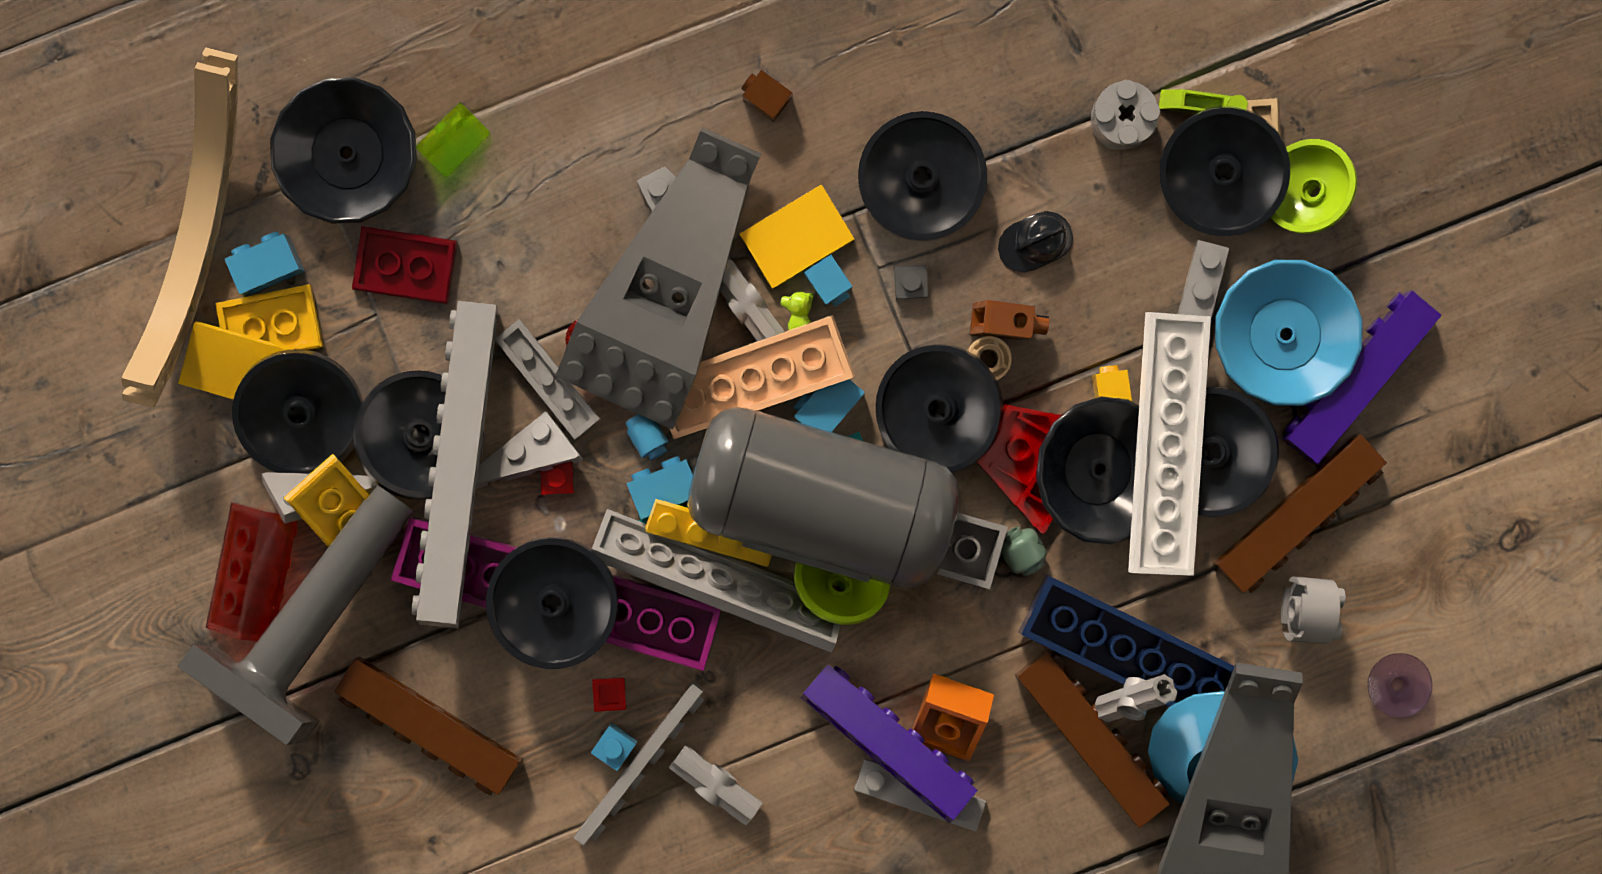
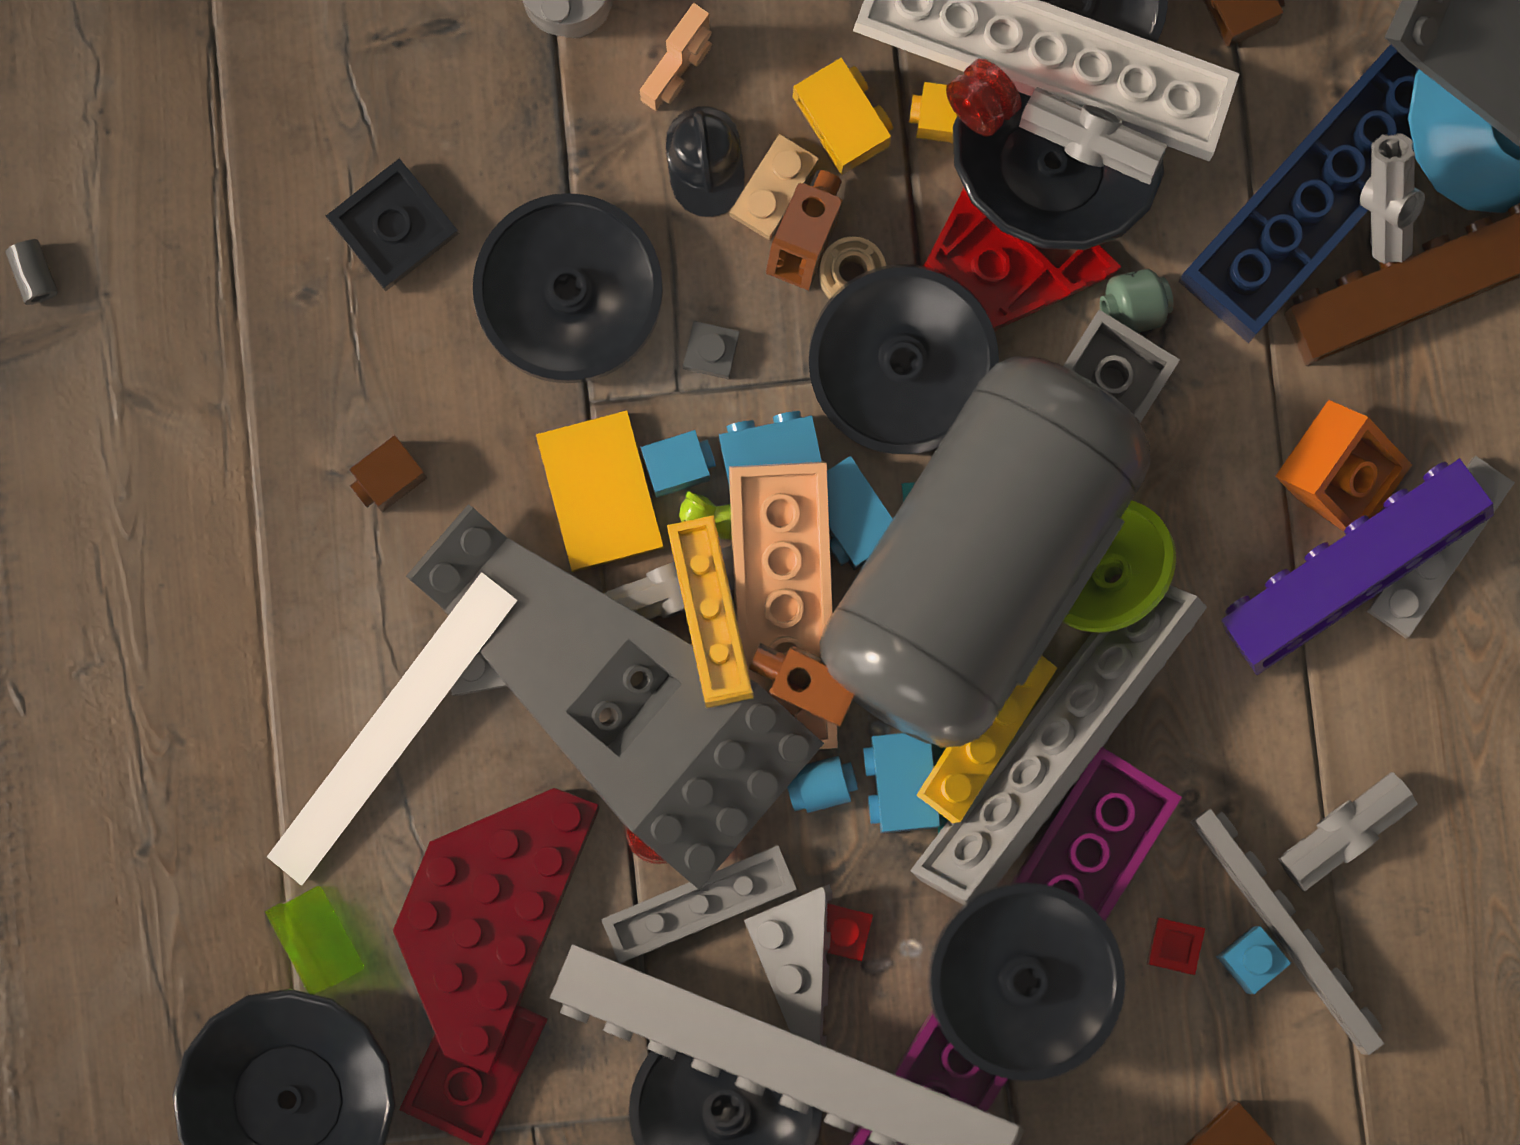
camera: 75 degrees left, 5 degrees down
(499, 243) = (484, 917): none -> dark red plate
(603, 148) = (391, 728): none -> white sticker
(697, 414) = (821, 696): none -> dark orange torso
(734, 330) = (710, 611): none -> yellow tile
(860, 346) = (784, 441): none -> dark azure brick
(932, 49) = (392, 224): none -> black plate
(1031, 290) = (772, 186): none -> tan plate
(1090, 322) = (843, 115): none -> yellow brick
(1105, 205) = (684, 46): none -> light nougat plate
(1120, 490) = (1093, 135): none -> light grey piece
(1124, 410) = (983, 97): none -> clear red wheel

